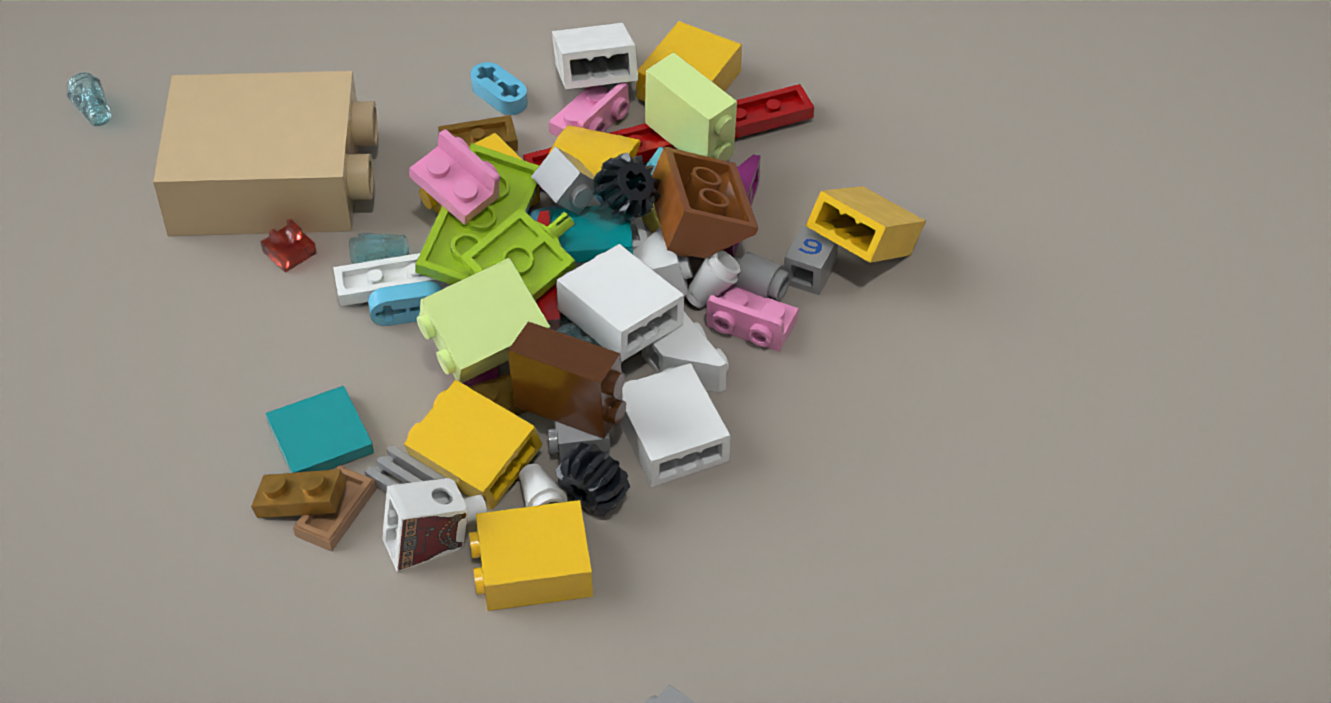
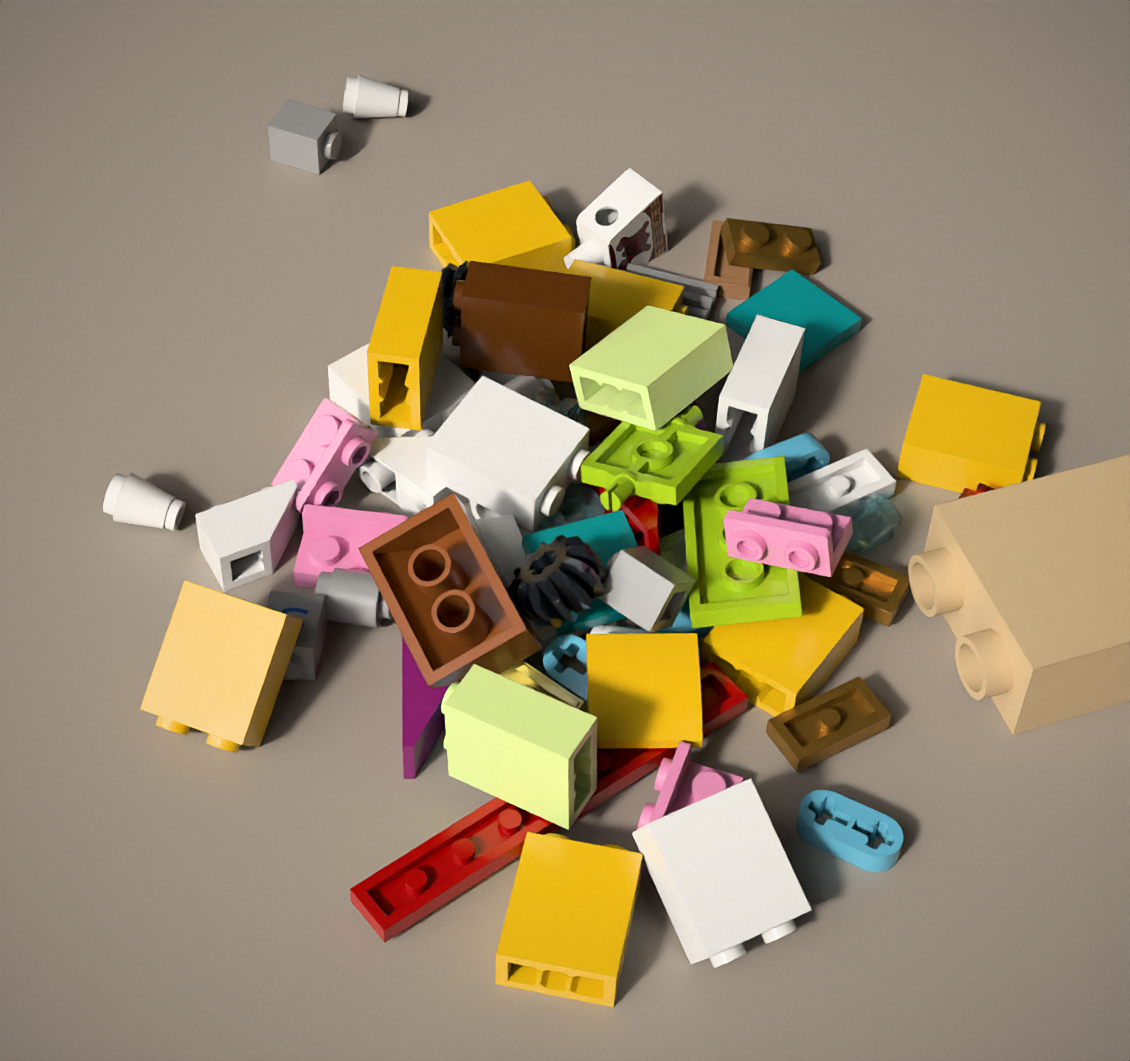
camera: 160 degrees right, 0 degrees up
(256, 290) = (969, 437): none -> yellow brick
(387, 337) = (759, 388): none -> white brick
(404, 214) = (867, 585): none -> pearl gold plate
(670, 377) = (405, 348): none -> yellow brick
(751, 359) = (326, 455): none -> bright pink bracket
(824, 337) = (248, 534): none -> white slope
(901, 383) = (141, 503): none -> white cone

